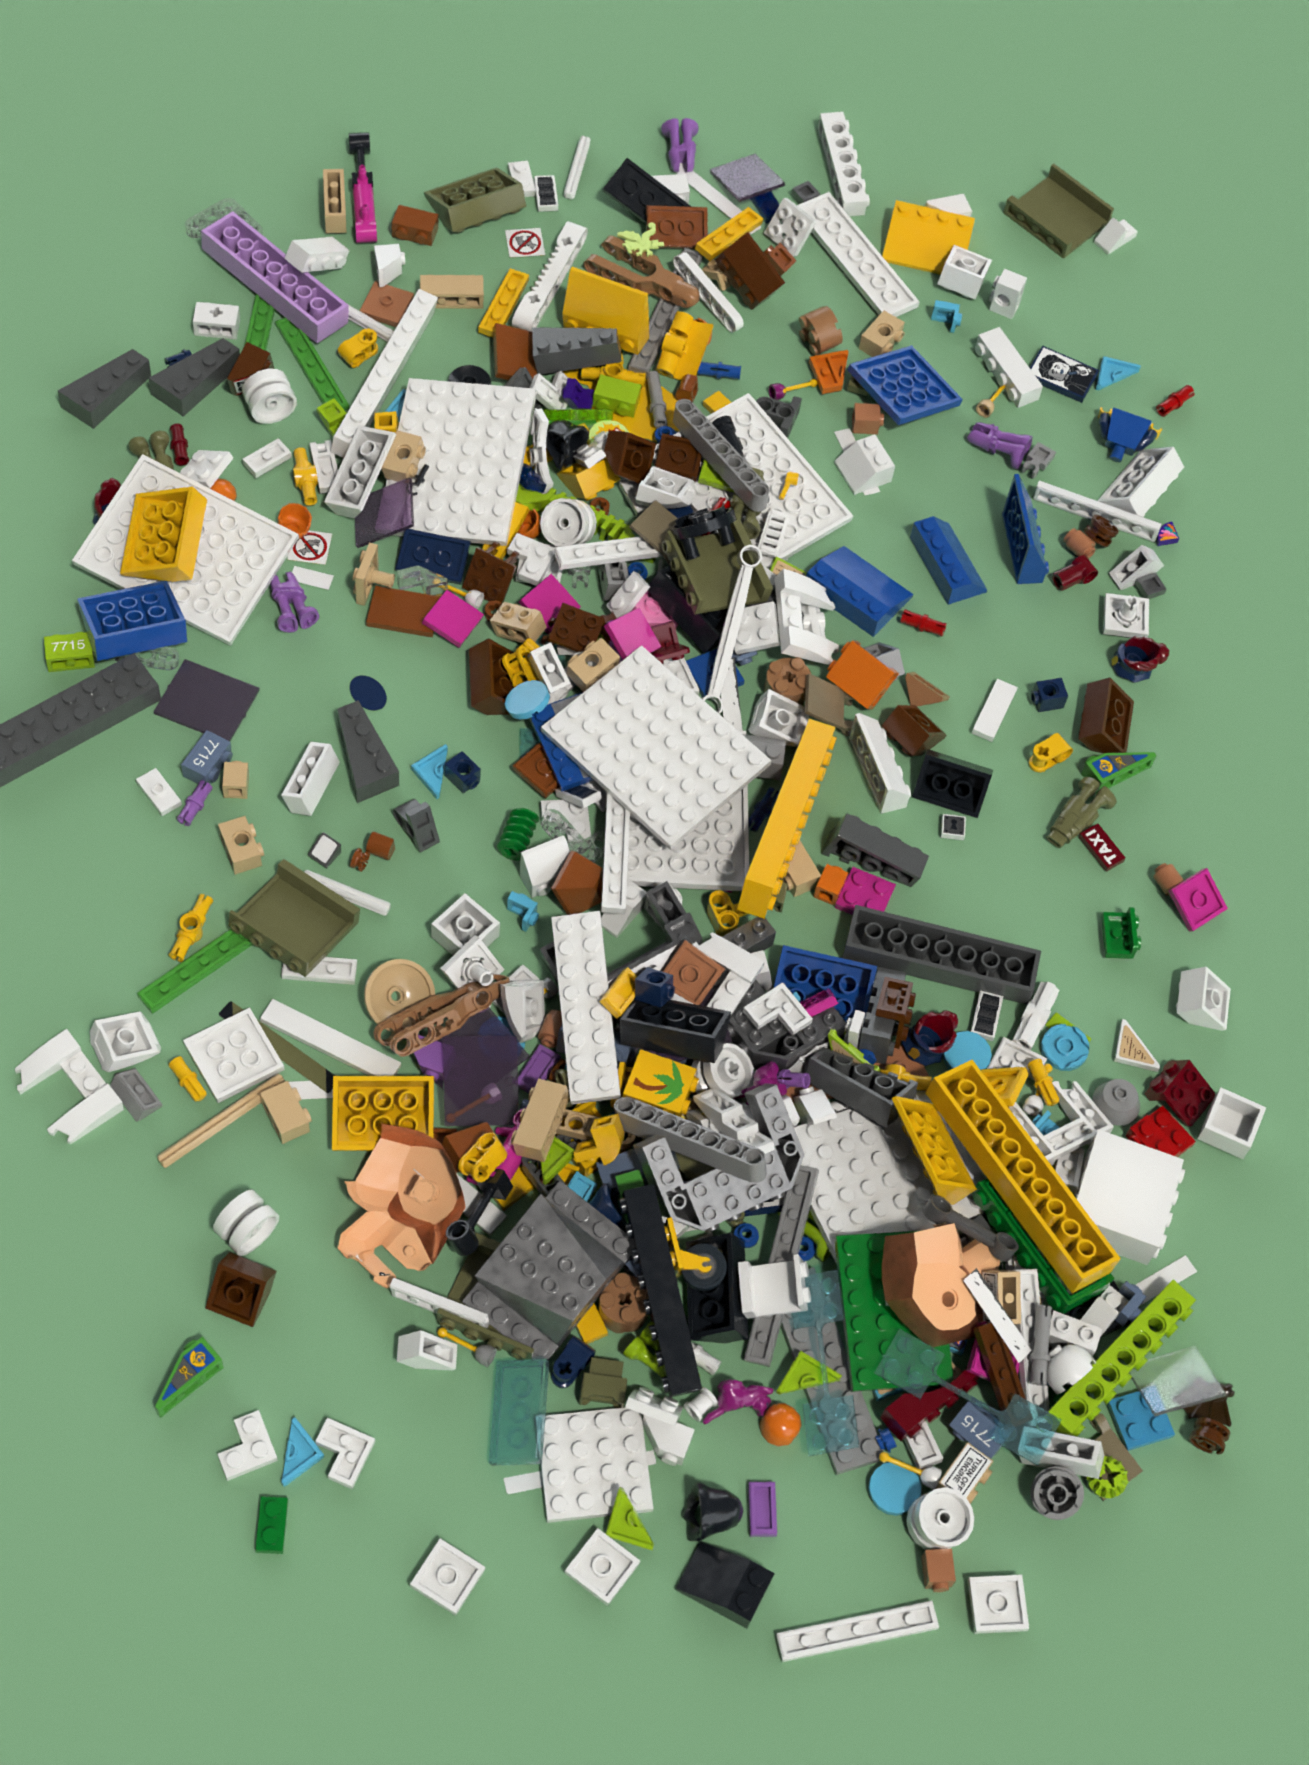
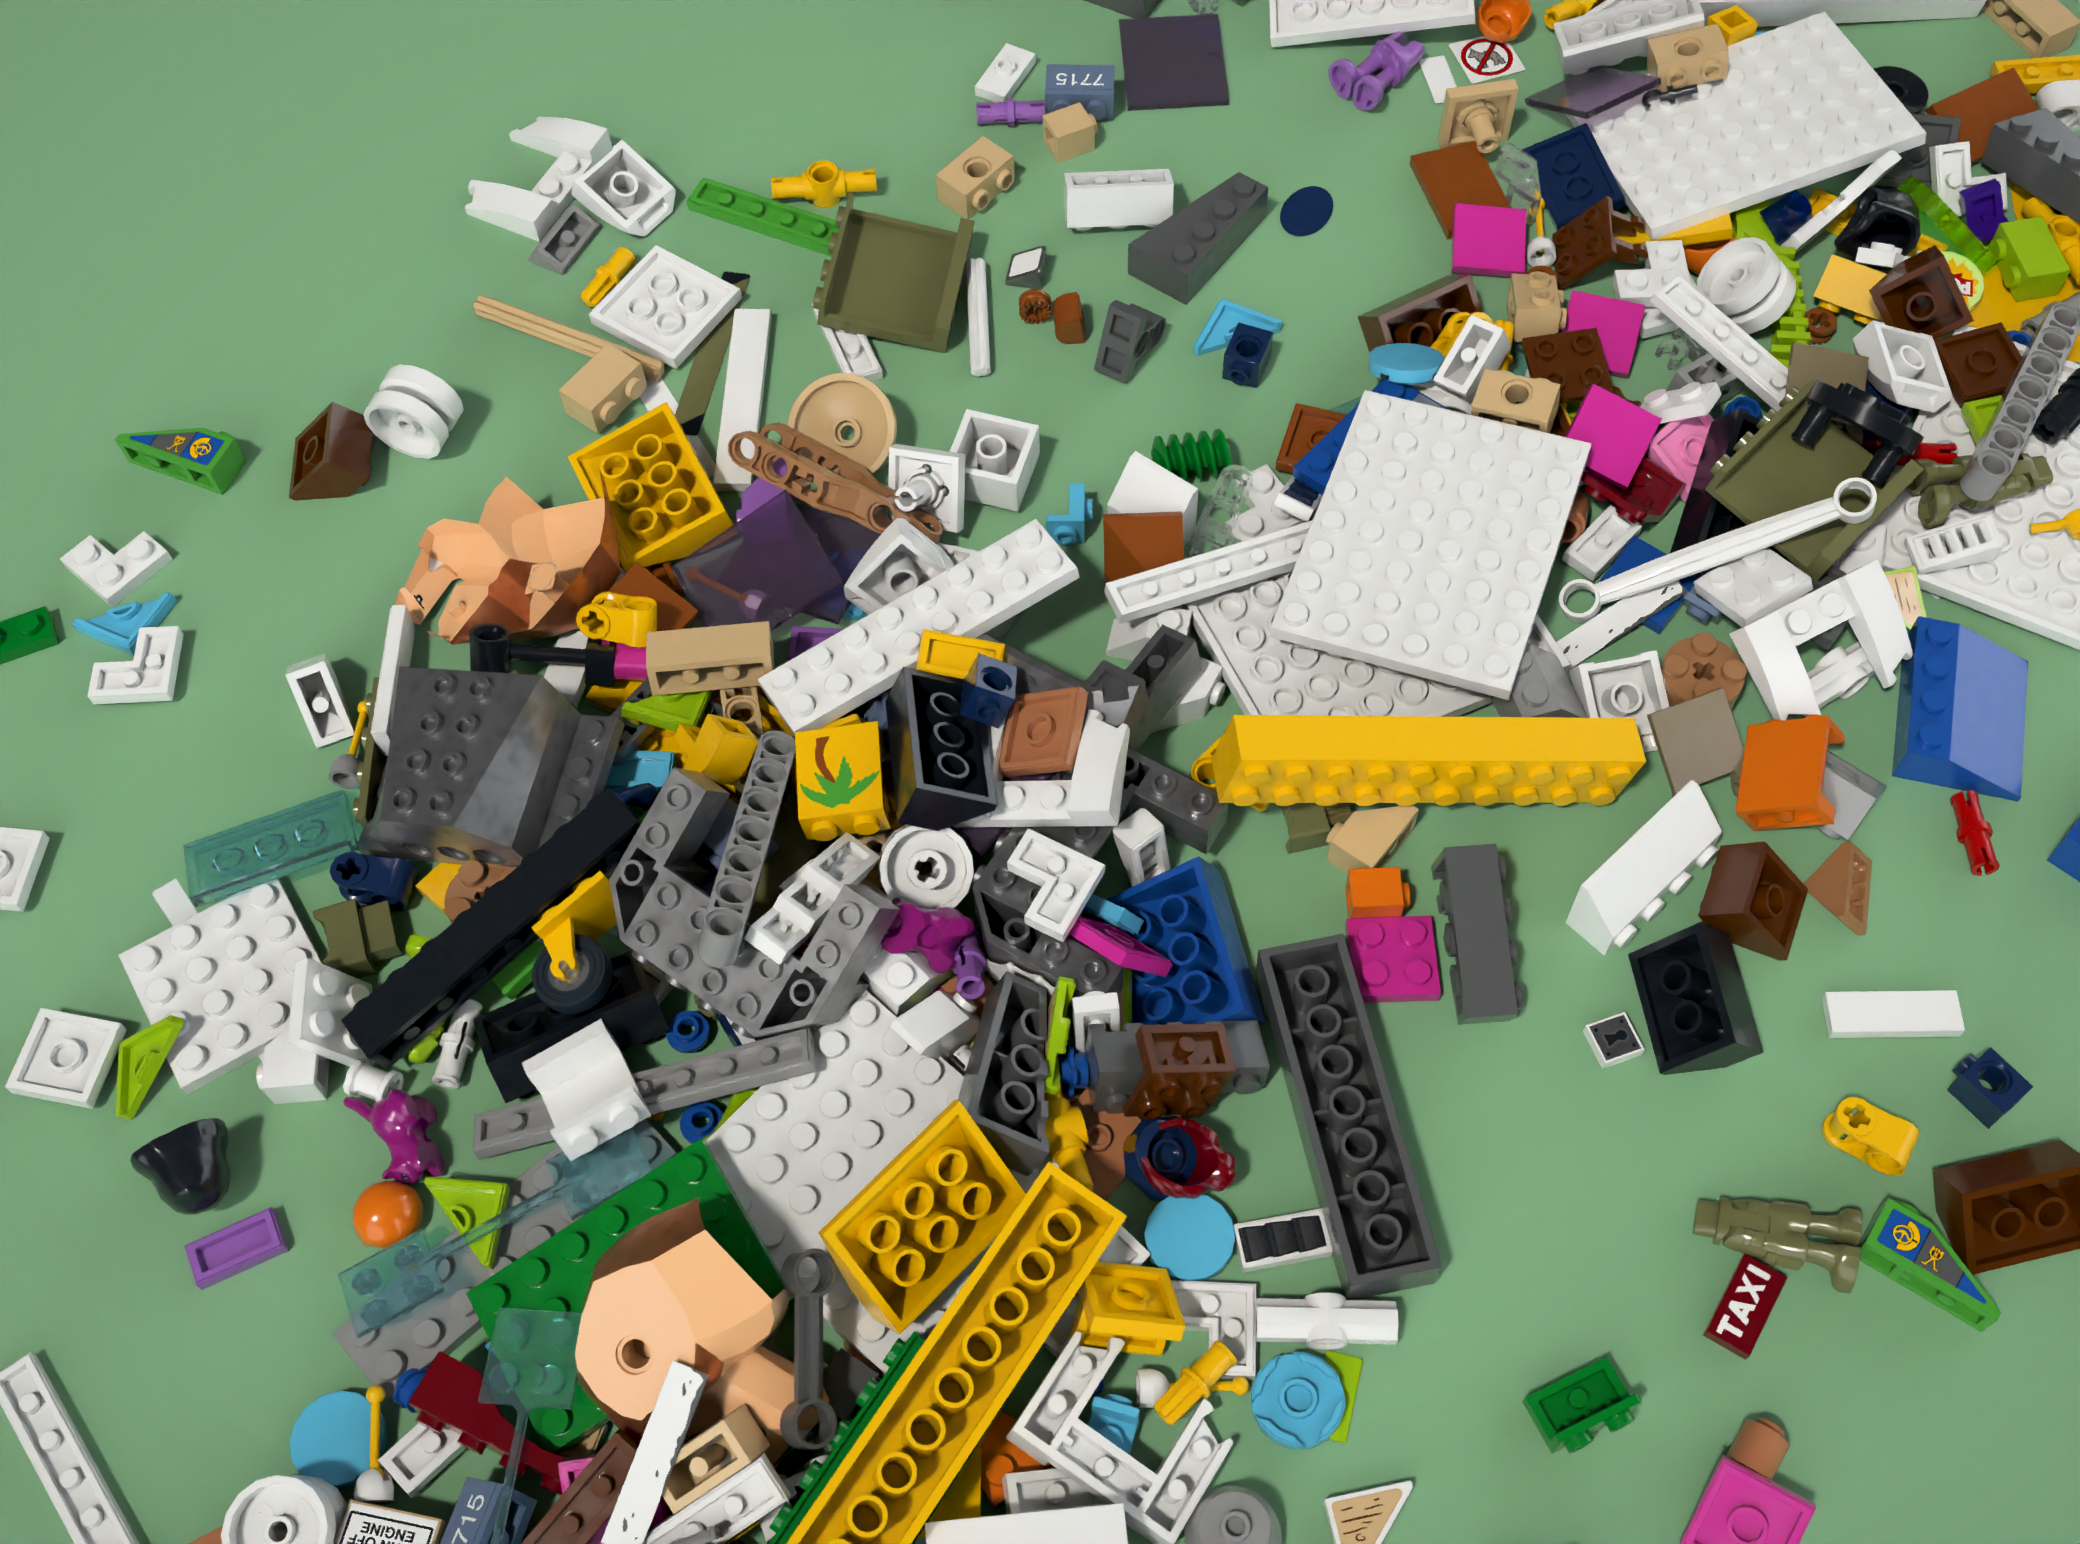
camera: 75 degrees right, 0 degrees up
(725, 1583) = (87, 1246): black slope -> none

